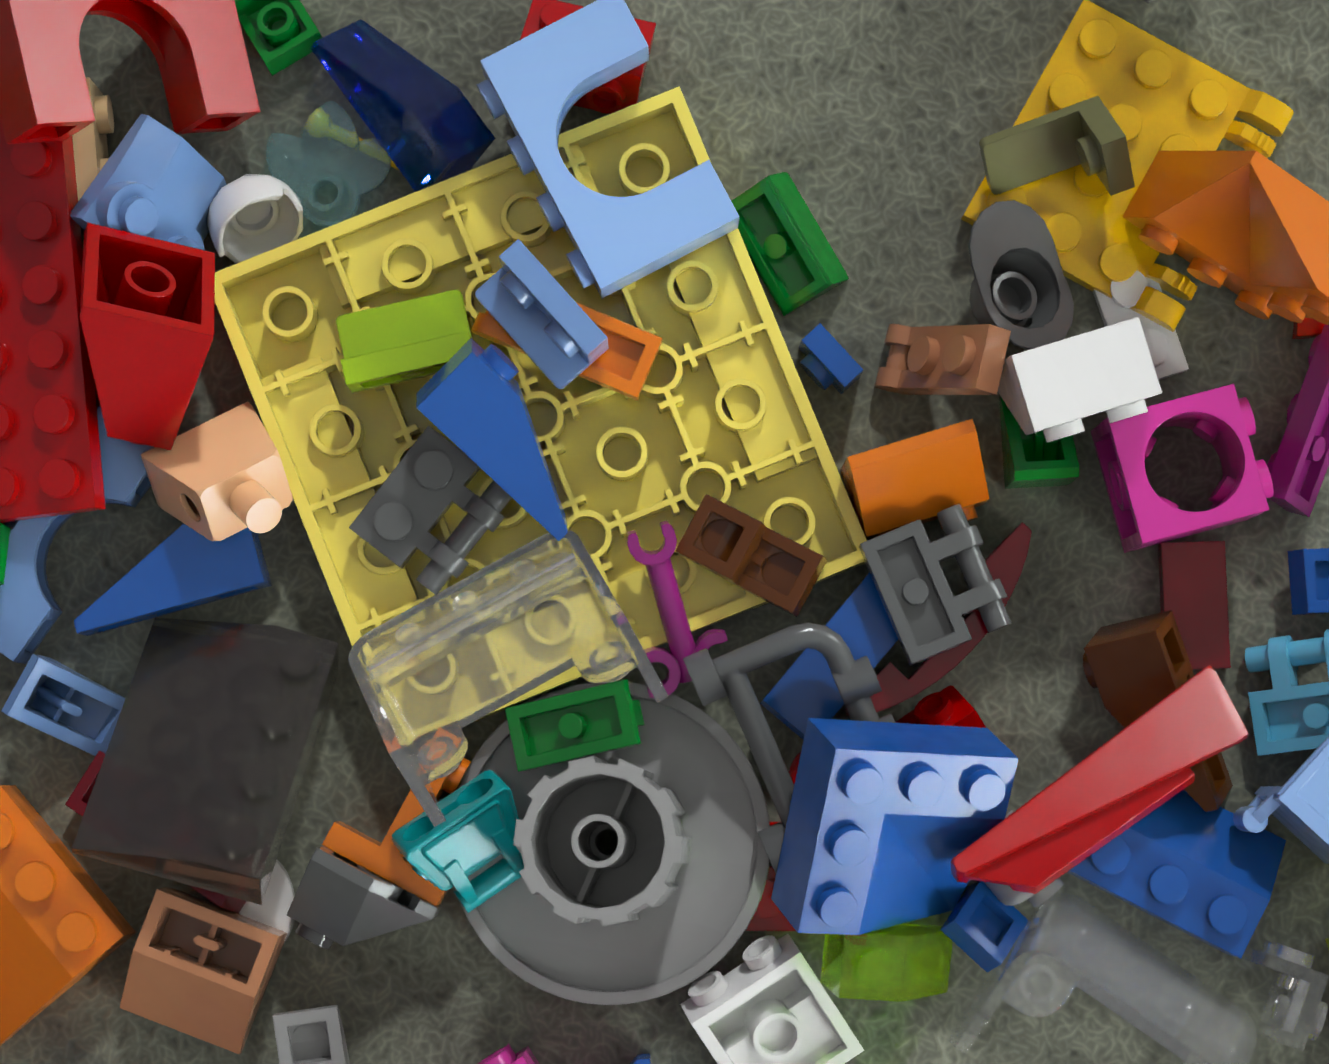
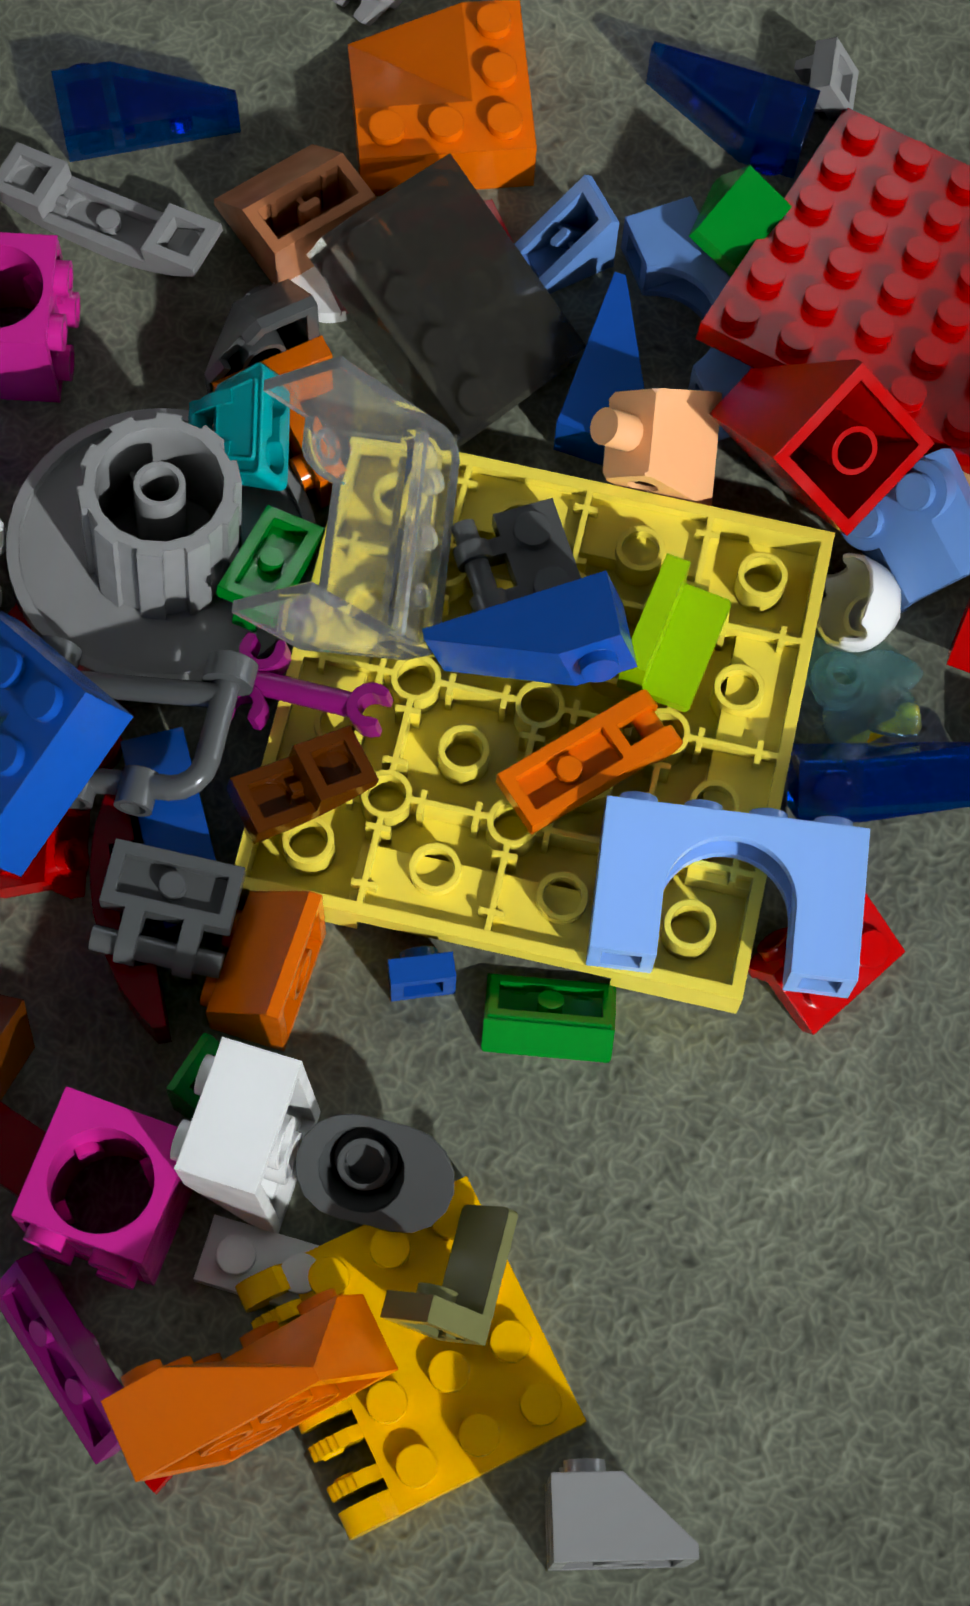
camera: 120 degrees right, 15 degrees down
(541, 316) = (617, 733): medium blue bracket -> none
(944, 359) = (349, 1049): nougat plate -> none

